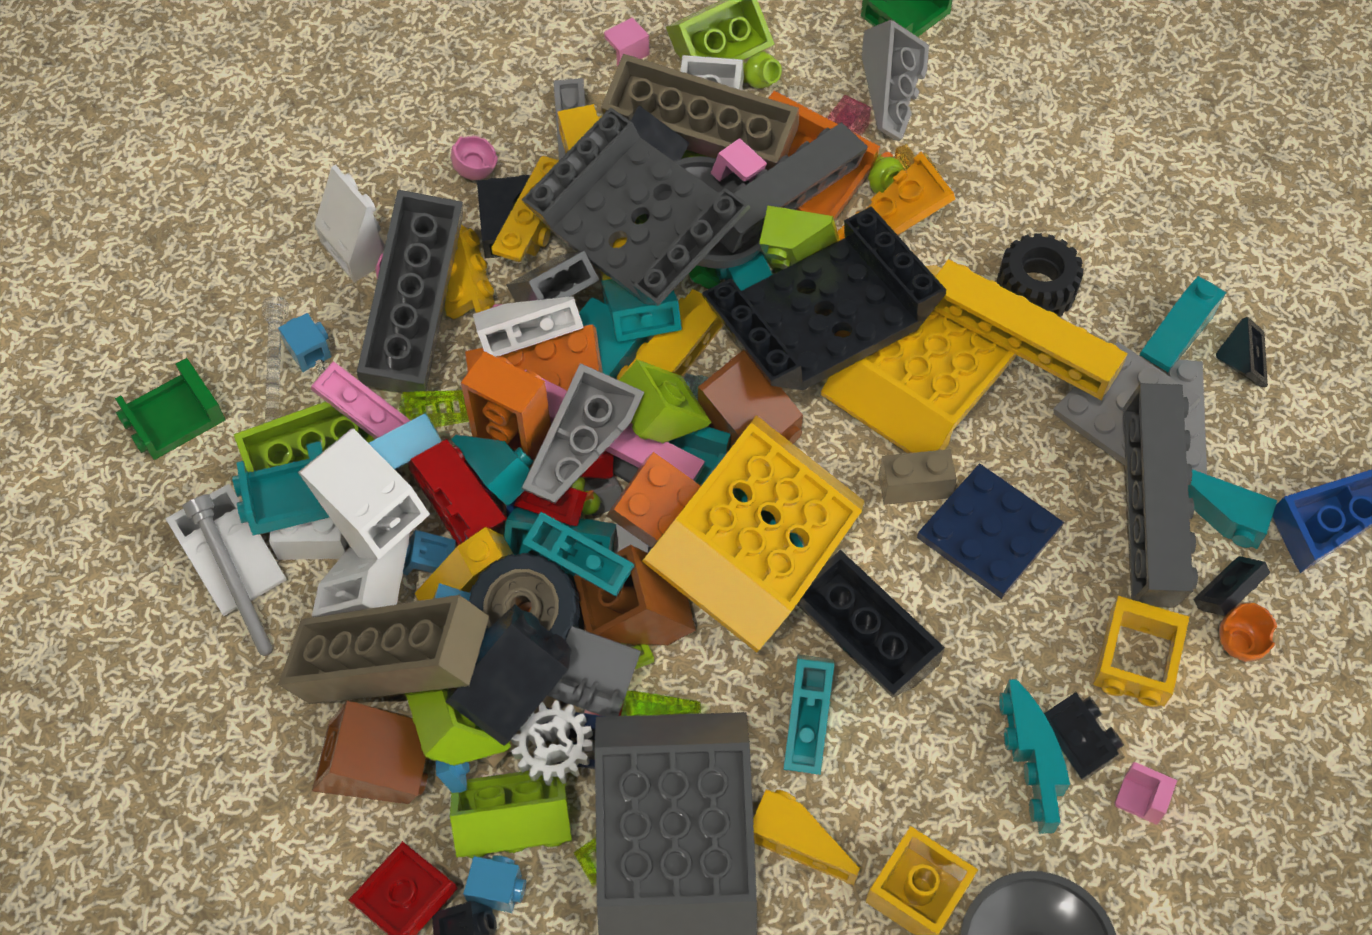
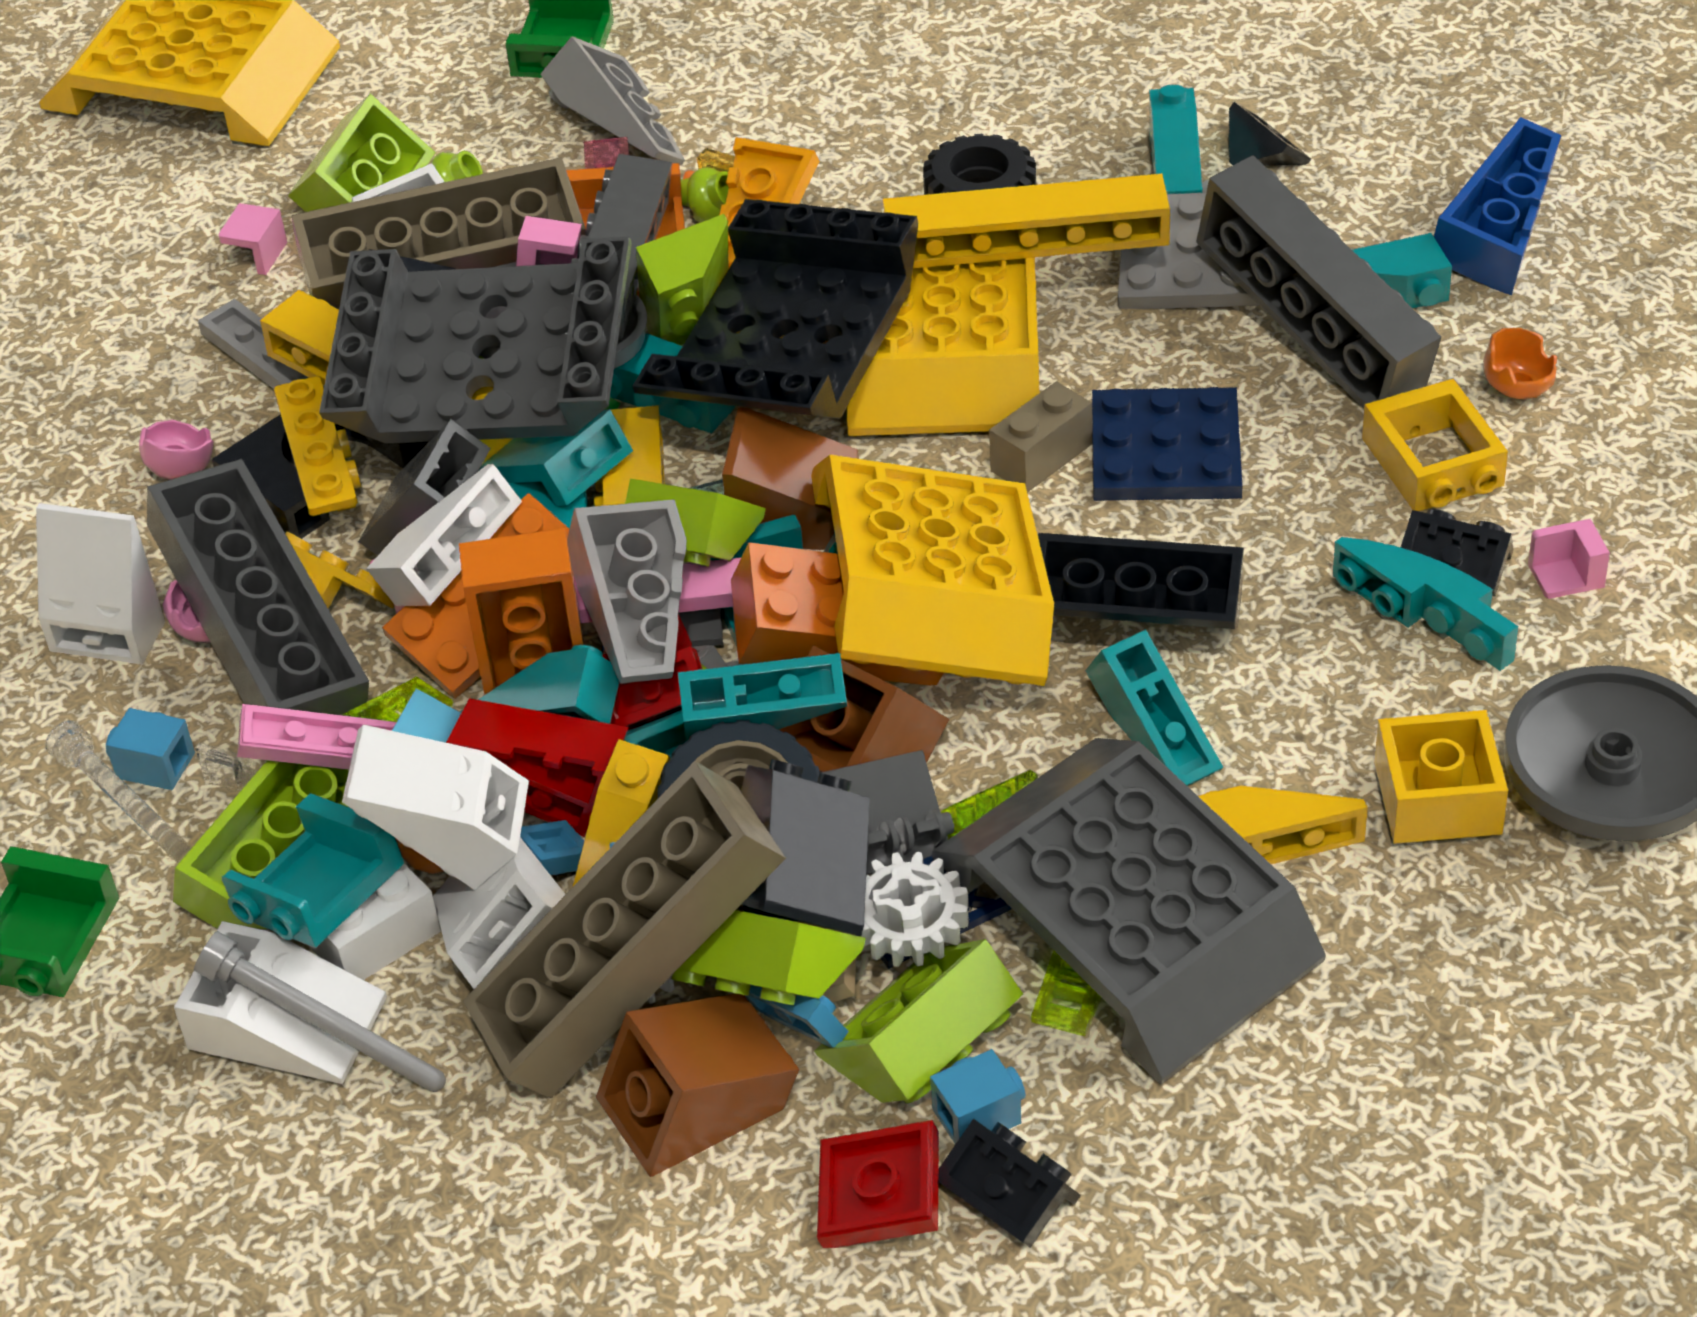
camera: 35 degrees left, 15 degrees down
(1232, 585) = (1463, 337): black plate -> none

